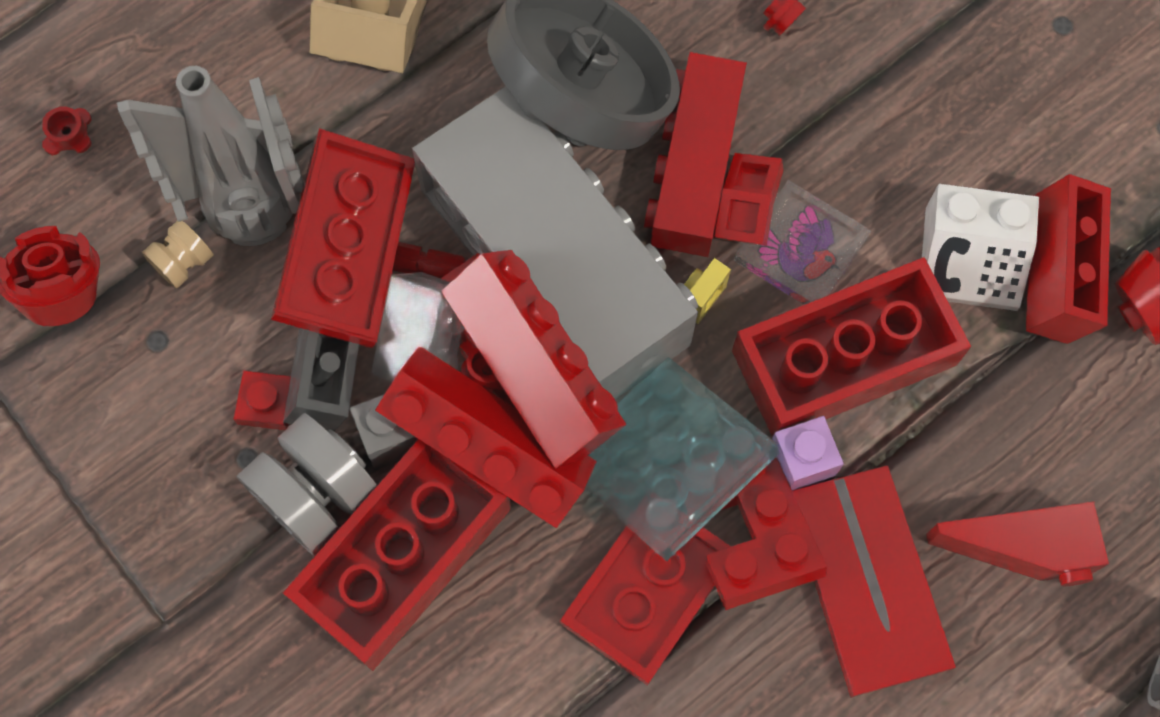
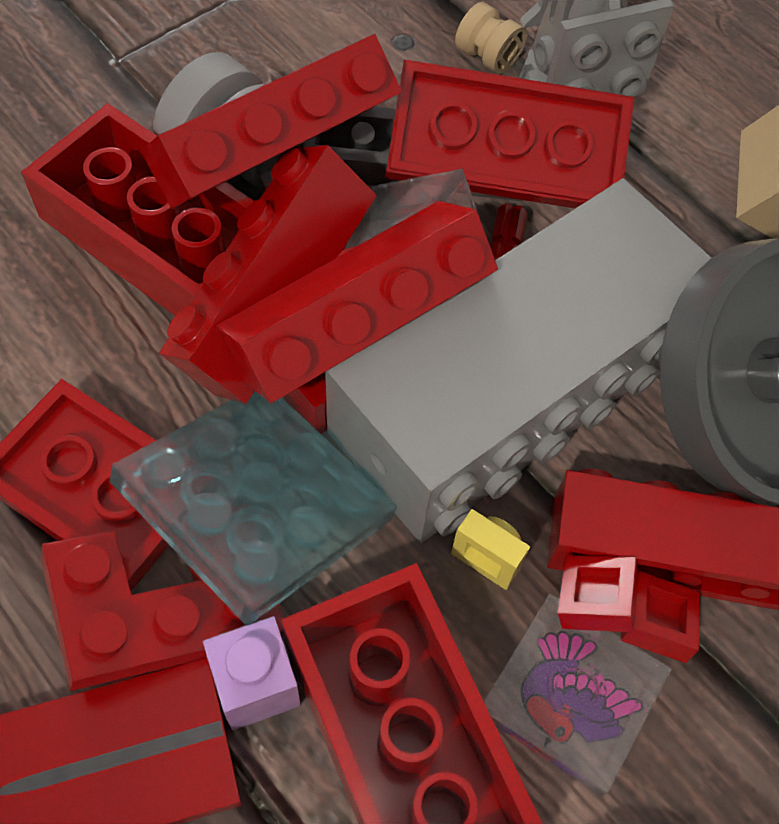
camera: 85 degrees right, 10 degrees down
(358, 422) = (270, 120): none -> red brick

